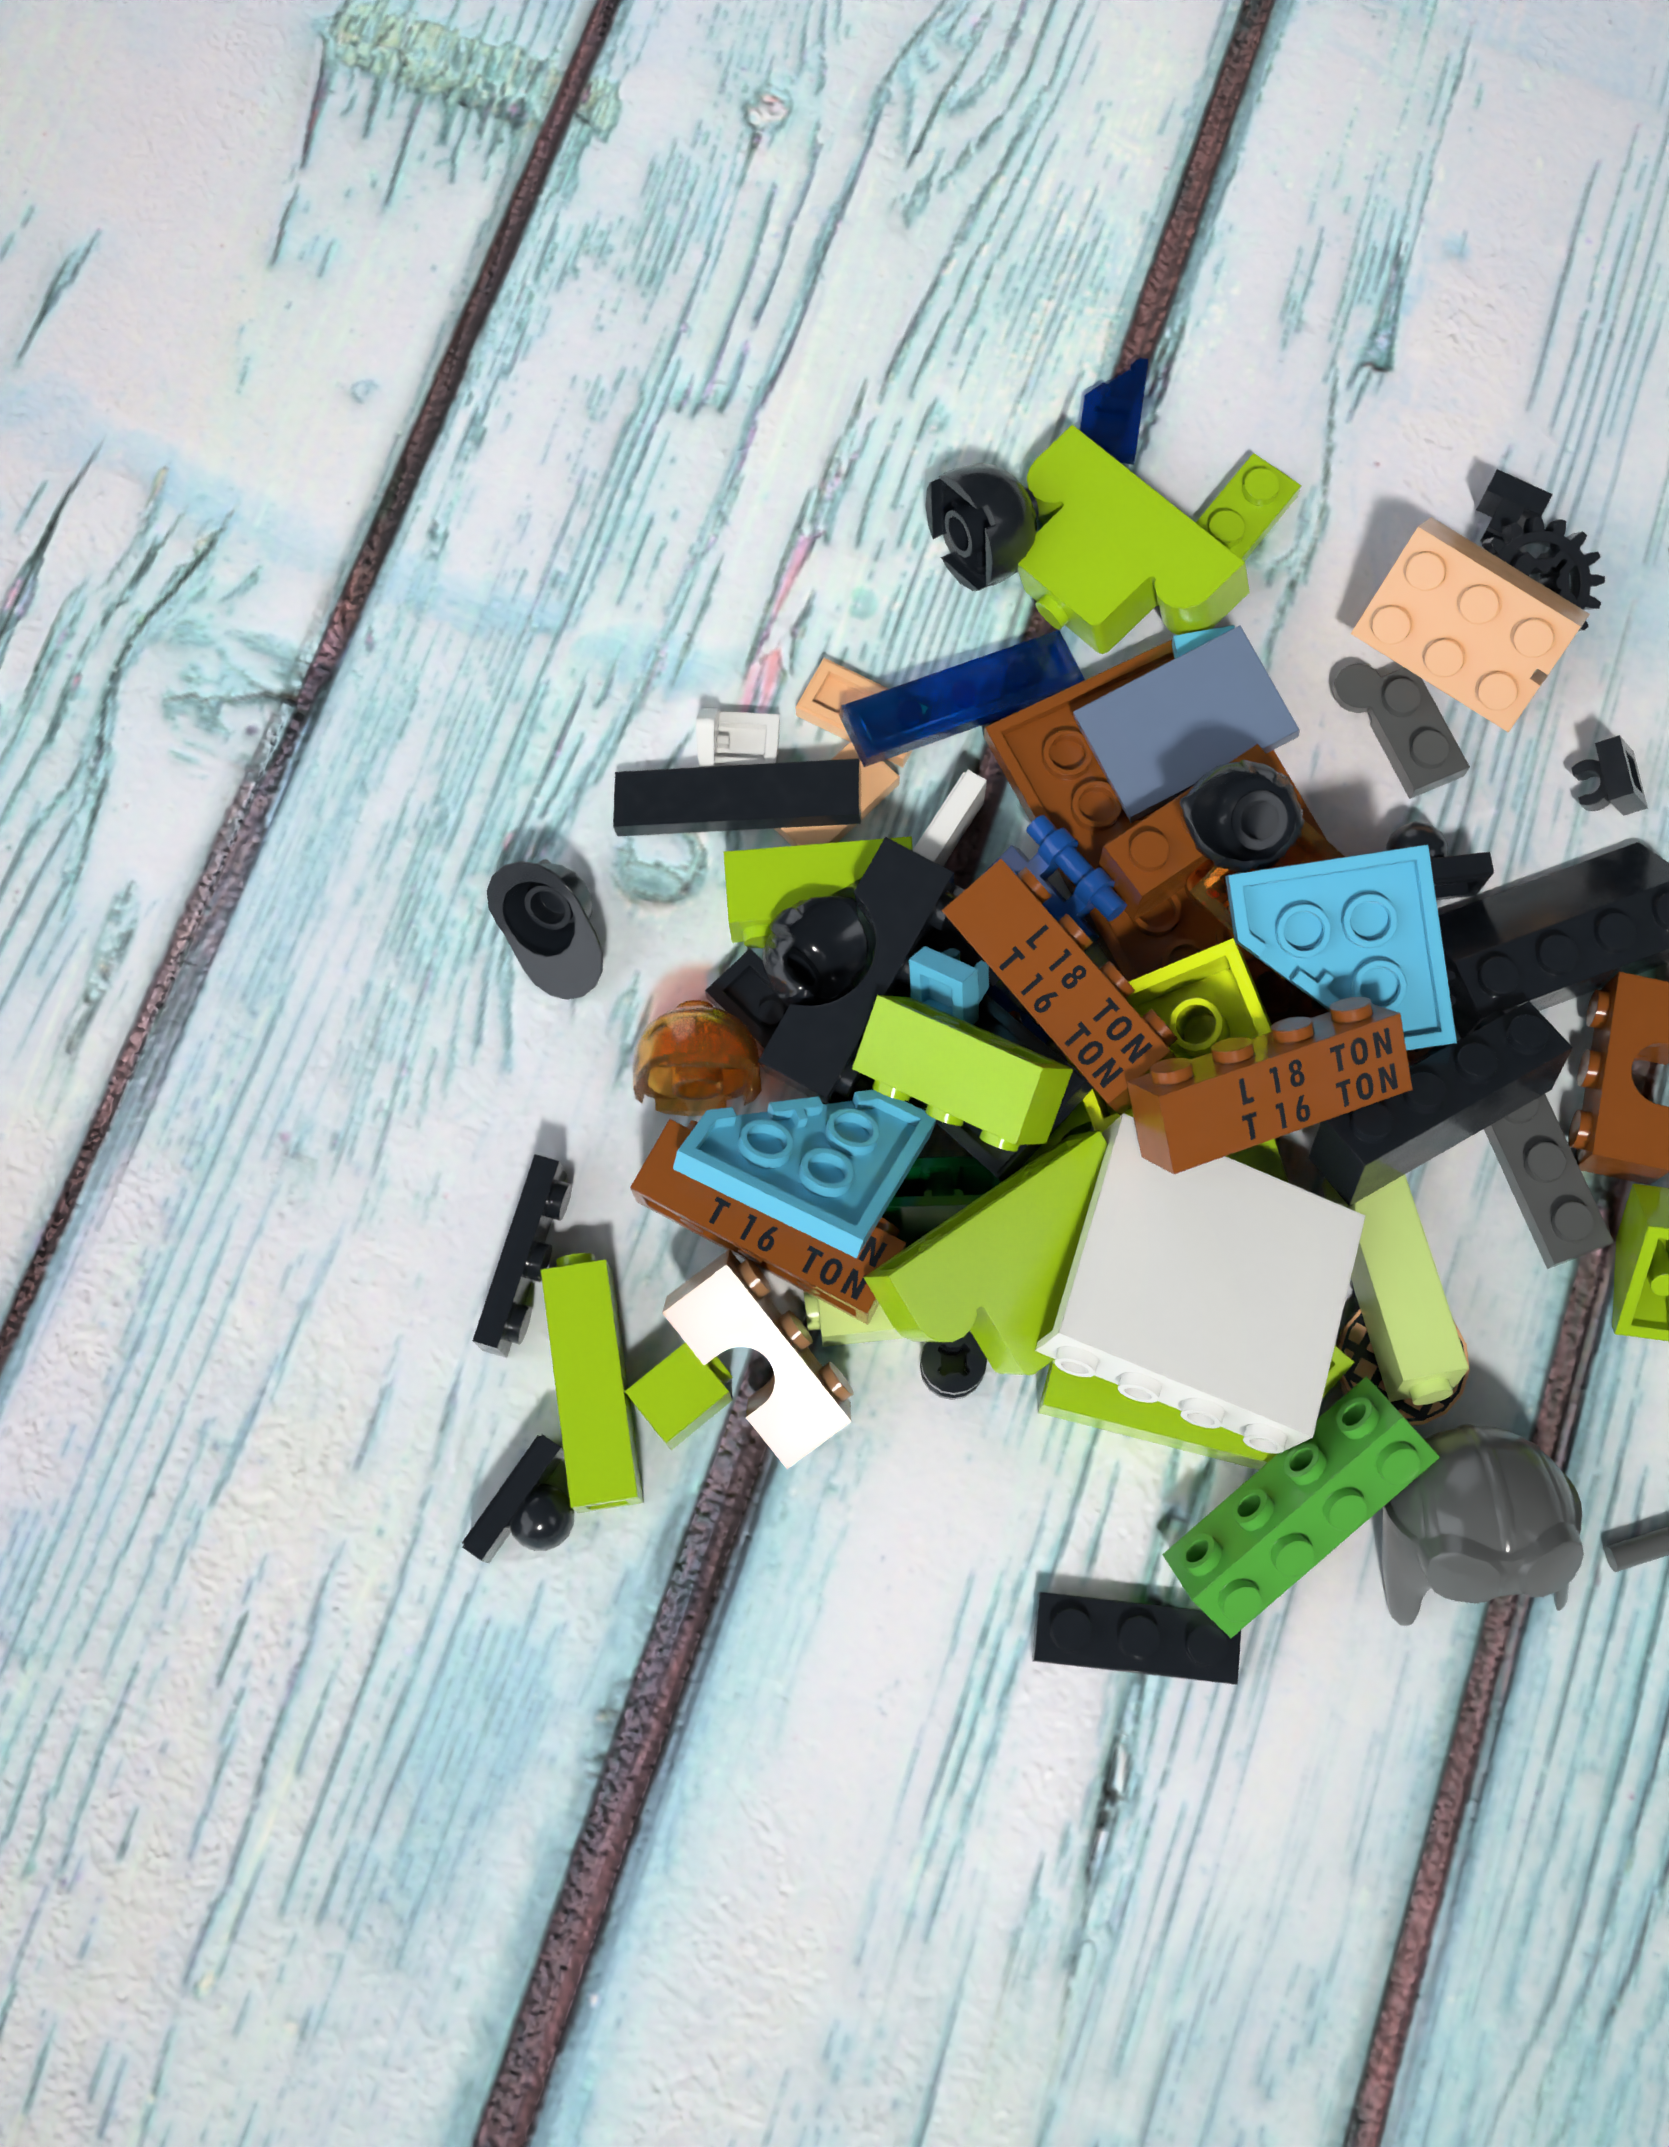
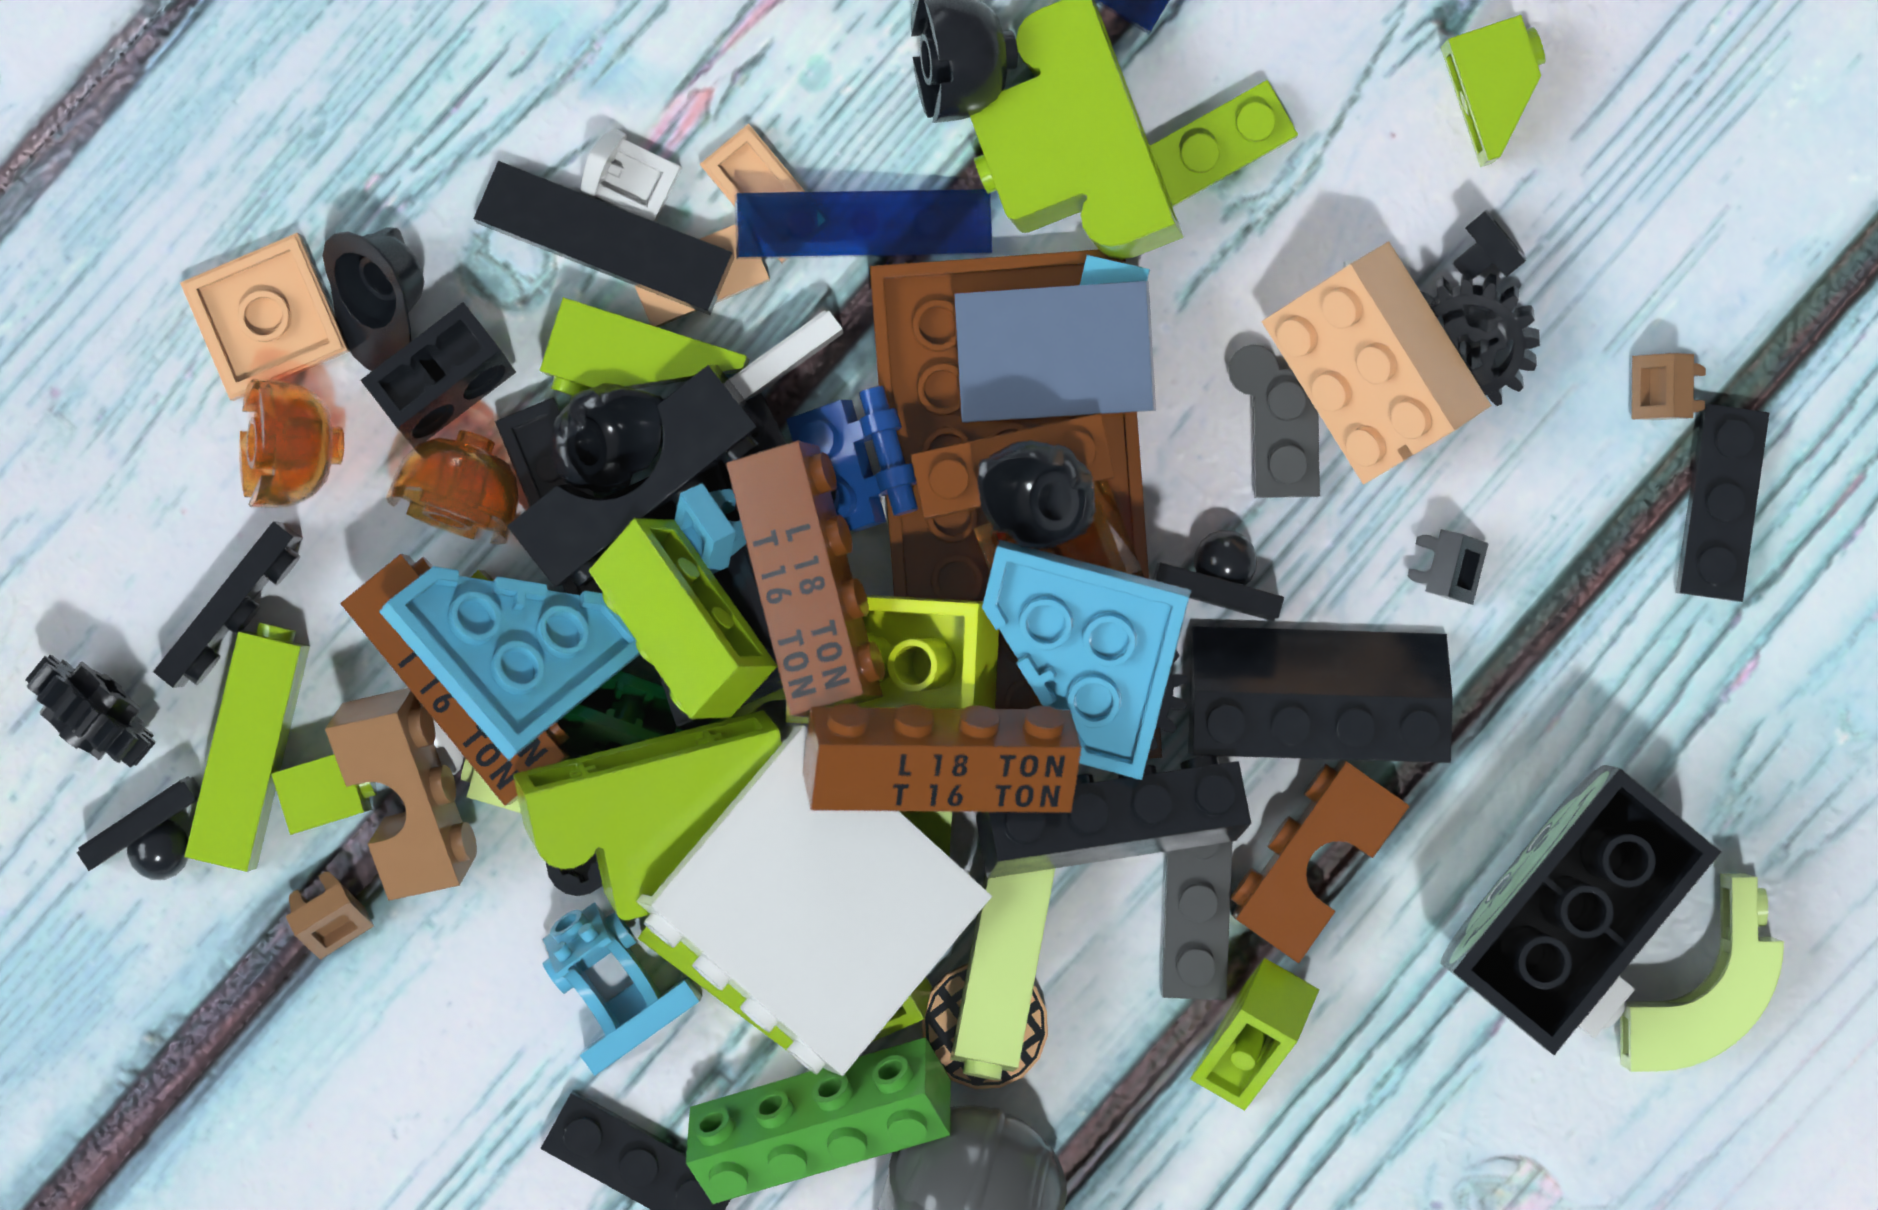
camera: 20 degrees right, 15 degrees up
(425, 1401) = (90, 711): none -> black gear
(456, 990) = (265, 315): none -> light nougat tile
(520, 1084) = (287, 444): none -> clear orange cylinder
(637, 965) = (438, 375): none -> black brick
(734, 1516) = (328, 919): none -> medium nougat tile
(1067, 1488) = (636, 1012): none -> medium azure tile
(1443, 381) = (1493, 80): none -> lime slope

